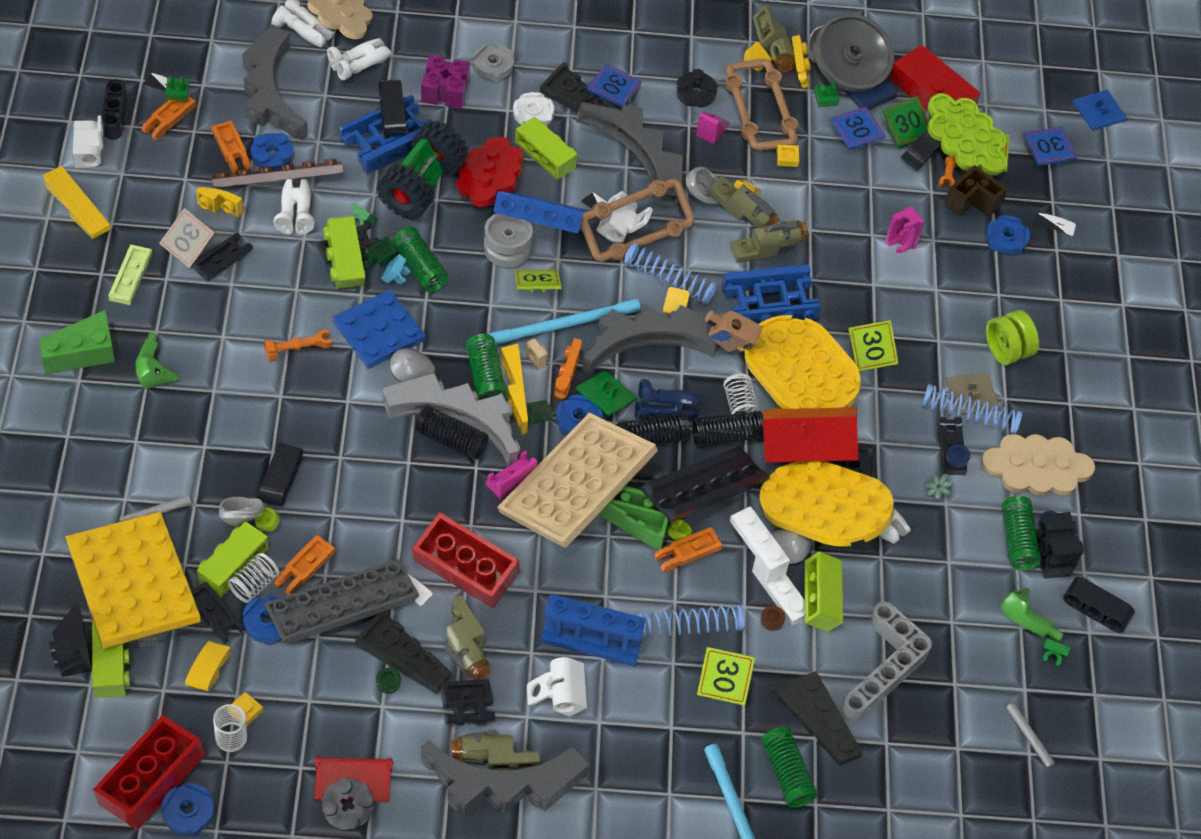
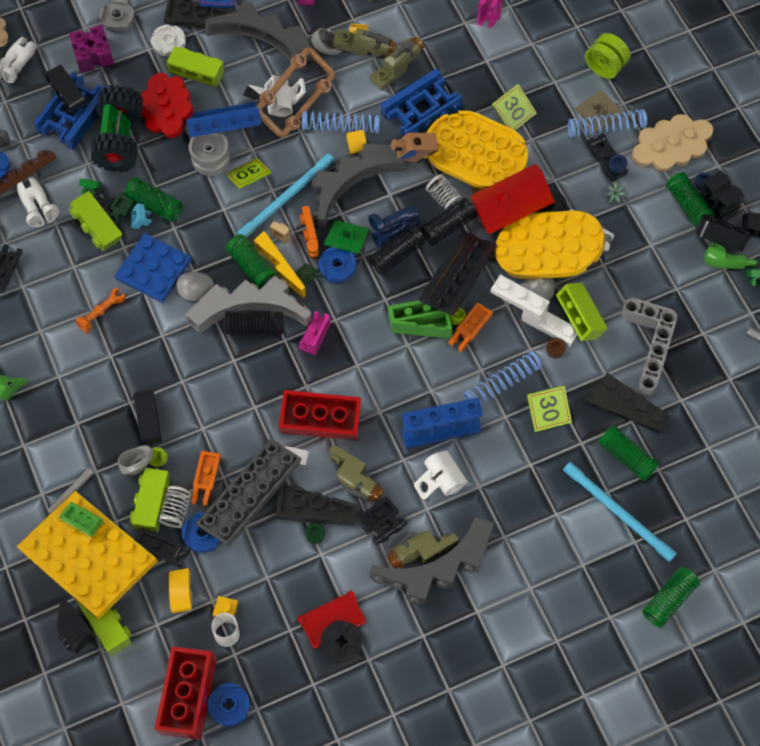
camera: 20 degrees left, 10 degrees up
(146, 539) = (81, 519): none -> bright green plate
(577, 479) = (367, 315): tan plate -> none
(1038, 584) = (722, 233): none -> black beam

